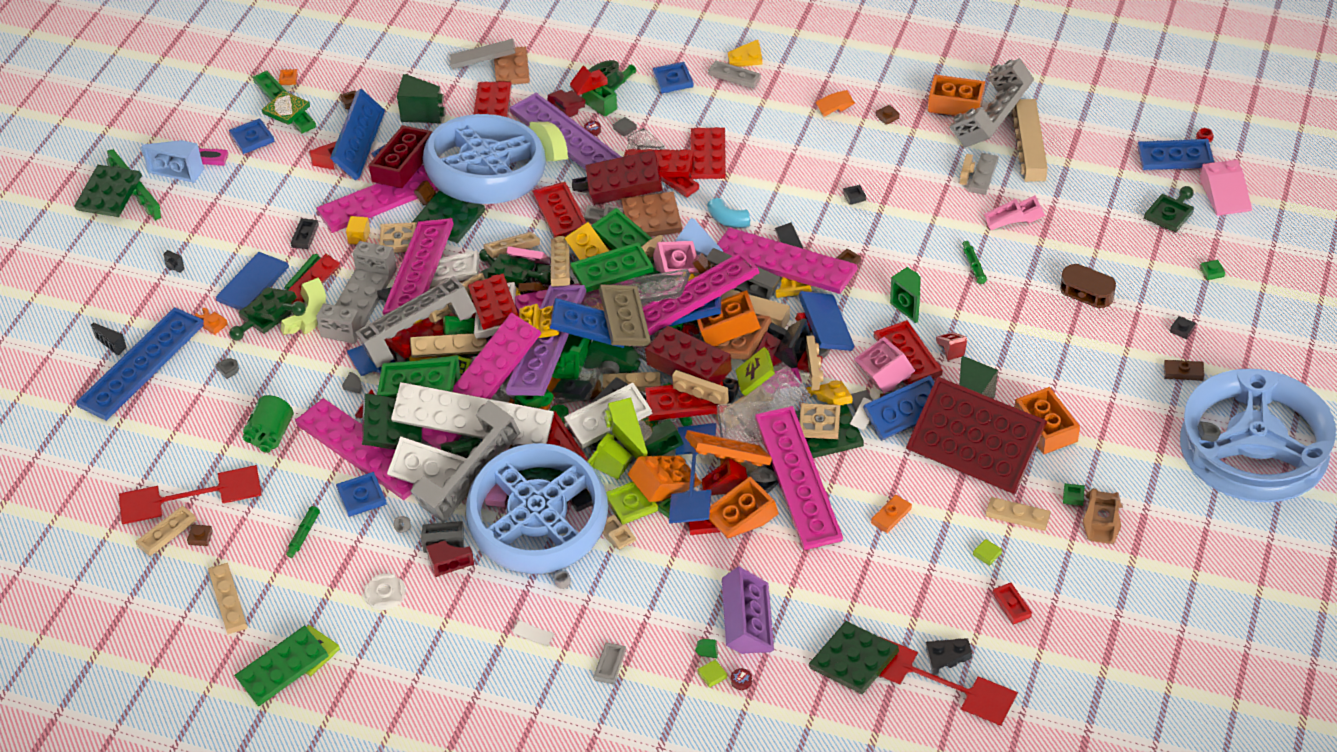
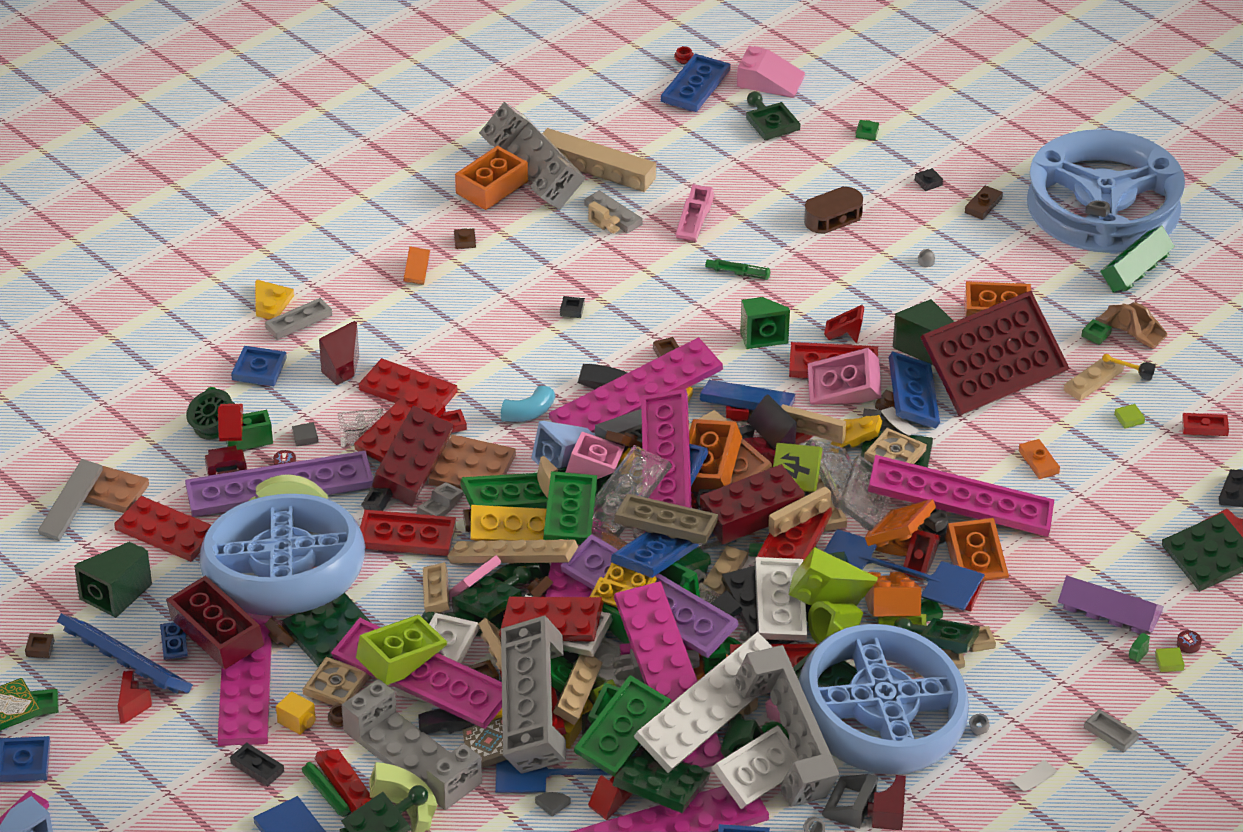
camera: 65 degrees left, 5 degrees down
(422, 243) = (399, 648): none -> lime slope
(636, 523) = (944, 633): none -> dark green plate
(660, 550) = (984, 641): none -> tan tile
(706, 105) = (340, 353): none -> dark red slope
(1049, 542) = (1145, 369): none -> hinge
(1081, 361) = (926, 258): none -> light grey hinge
(1185, 486) = (1137, 259): none -> brick

